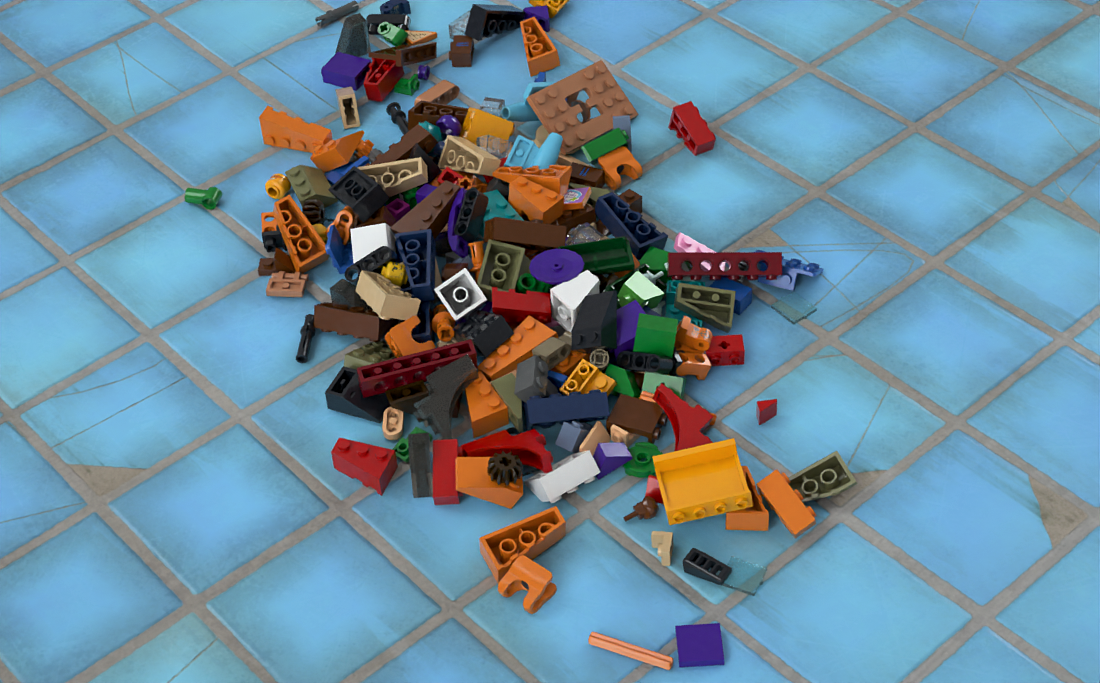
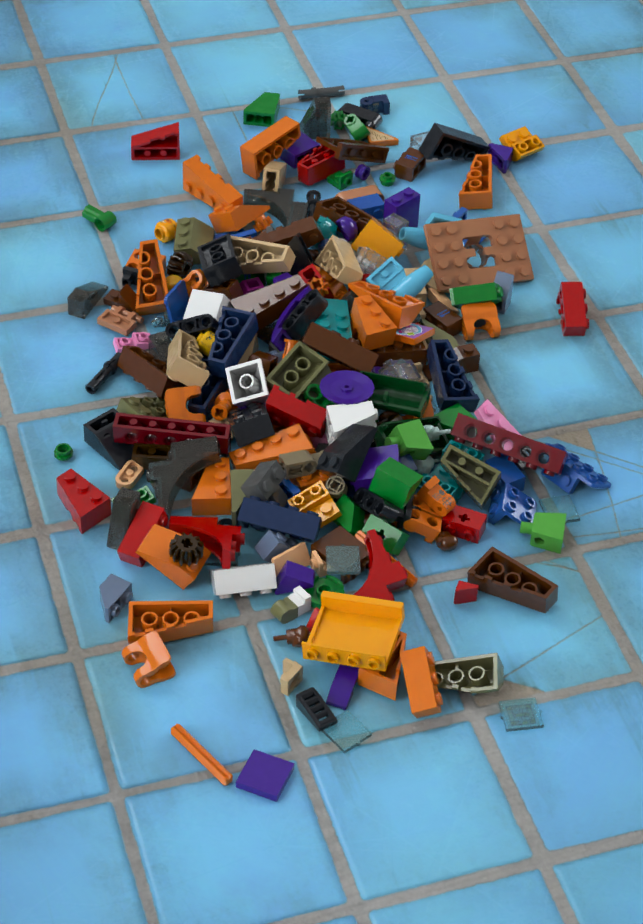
camera: 20 degrees right, 0 degrees up
(216, 109) = (157, 144): none -> red wedge
(241, 277) = (85, 298): none -> clear smoke slope
(294, 47) = (262, 110): none -> green slope
(315, 426) = (63, 451): none -> green plate
(316, 296) = (138, 339): none -> bright pink slope
(326, 76) = (268, 145): none -> orange wedge
(328, 270) = (161, 321): none -> clear light blue arm
(373, 32) = (337, 120): none -> green gear
(377, 130) = (280, 202): none -> clear smoke arch
(449, 71) = (387, 179): none -> green plate
(452, 96) = (370, 204): none -> blue brick
(454, 539) = (114, 596): none -> sand blue slope
(488, 86) = (405, 204): none -> dark purple brick
(623, 482) = (292, 605): none -> leg
(644, 423) = (343, 560): none -> clear light blue piece
(716, 536) = (342, 687): none -> dark purple slope
(719, 372) = (446, 541): none -> reddish brown piece
(752, 316) = (512, 503): none -> blue bracket
(798, 329) = (546, 531): none -> bright green torso
(802, 384) = (512, 581): none -> reddish brown wedge
(881, 498) = (520, 714): none -> clear light blue piece

